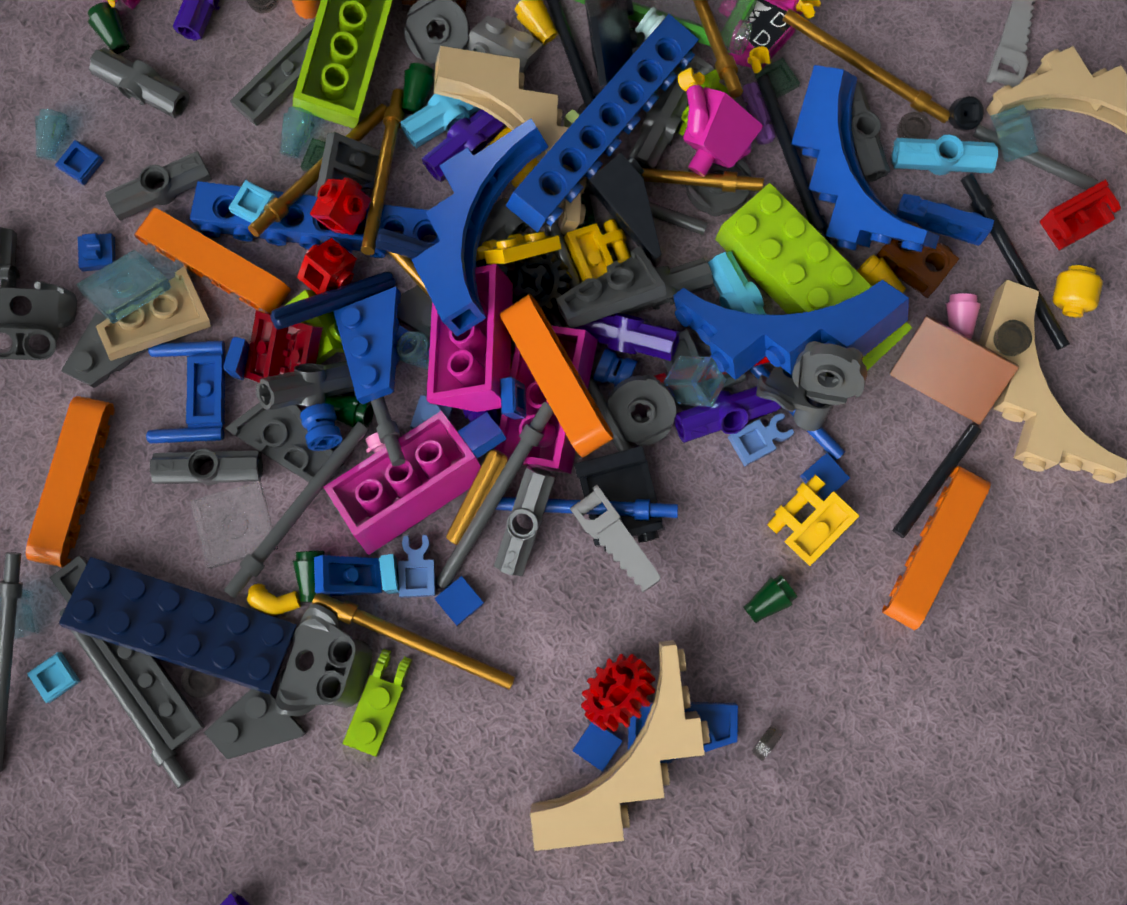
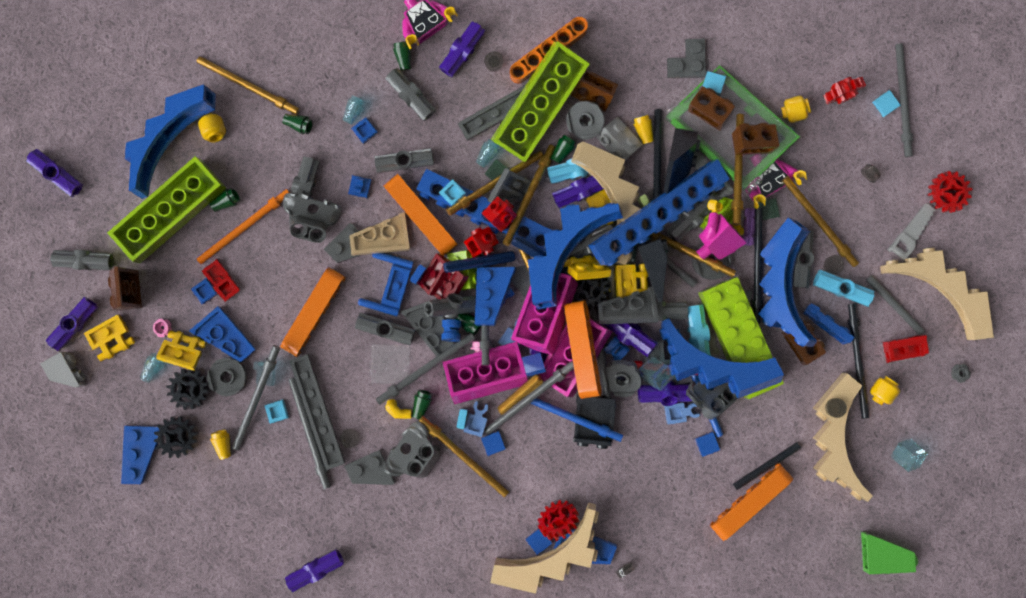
camera: 25 degrees right, 10 degrees up
(124, 286) = (370, 215): clear light blue tile -> none
(178, 625) = (347, 408): dark blue plate -> none
(347, 575) = (440, 412): blue slope -> none
(376, 707) = (434, 483): lime hinge -> none
(414, 349) = (513, 304): clear light blue cone -> none
(513, 398) = (556, 352): blue tile -> none
(519, 541) = (547, 409): dark grey piece -> none
(616, 538) = (584, 442): light grey piece -> none
(649, 22) = (705, 160): light aqua bush -> none
(770, 599) = (654, 498): dark green cone -> none
(820, 528) = (692, 472): yellow plate -> none
(843, 362) = (727, 399): dark grey plate -> none
(877, 269) = (779, 345): yellow cone -> none
(953, 369) = (798, 411): tile -> none
(963, 313) = (816, 382): bright pink cone -> none
(966, 113) = (866, 266): black tile -> none
(1014, 133) = (888, 288): clear light blue panel -> none

